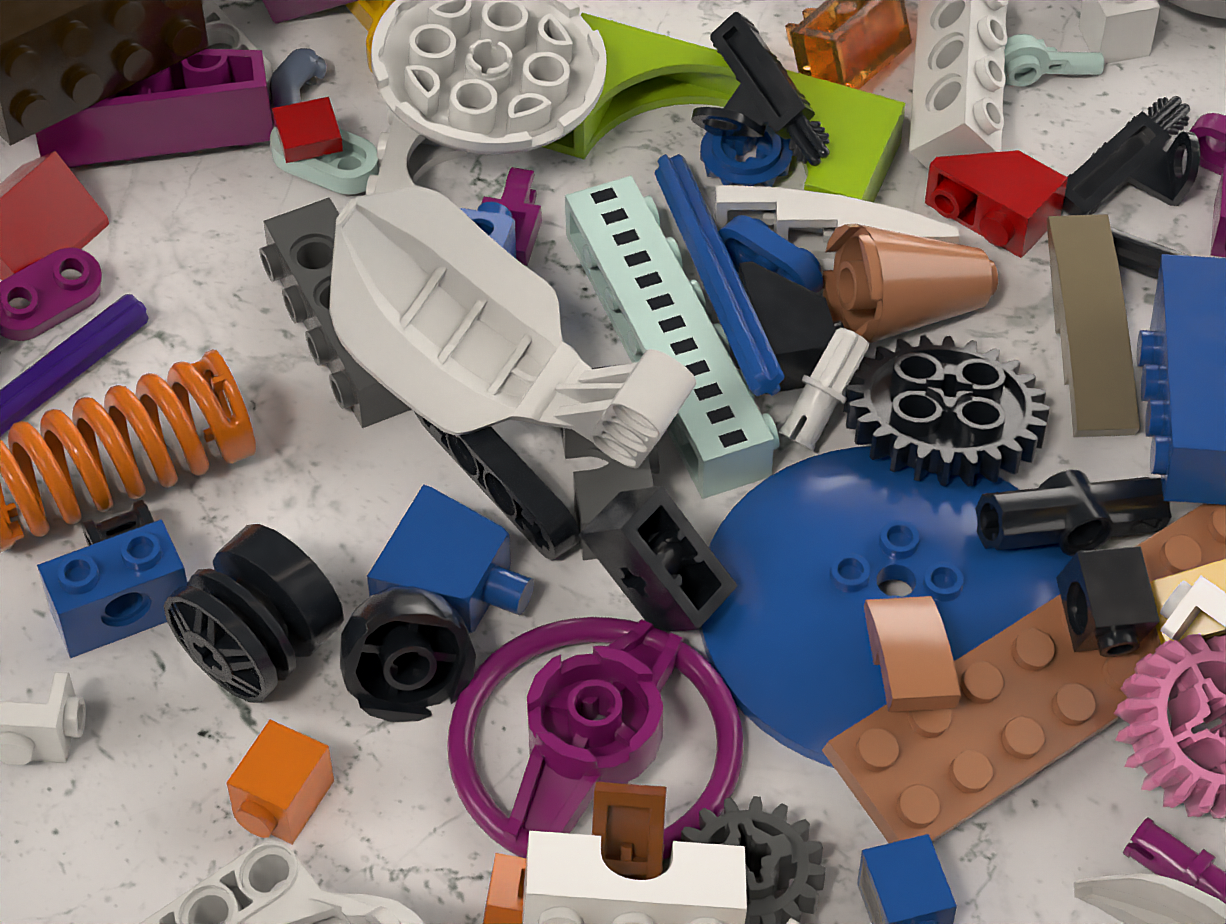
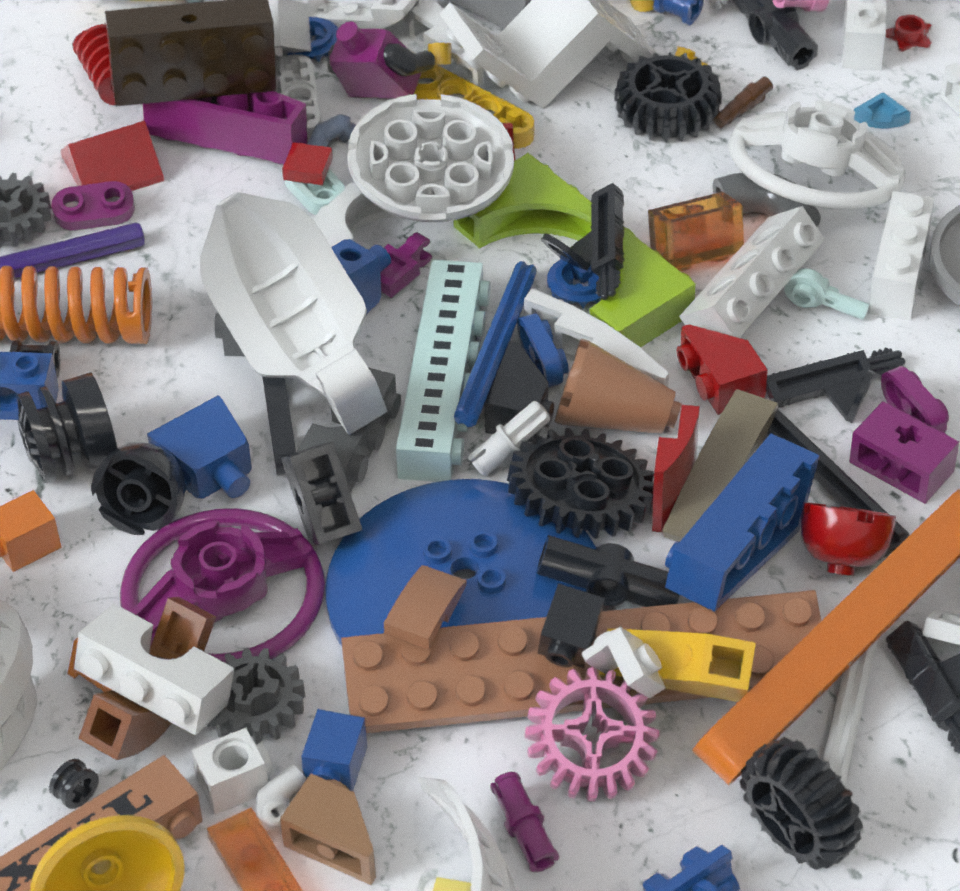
camera: 30 degrees right, 5 degrees down
(1054, 337) = (673, 464): none -> red slope

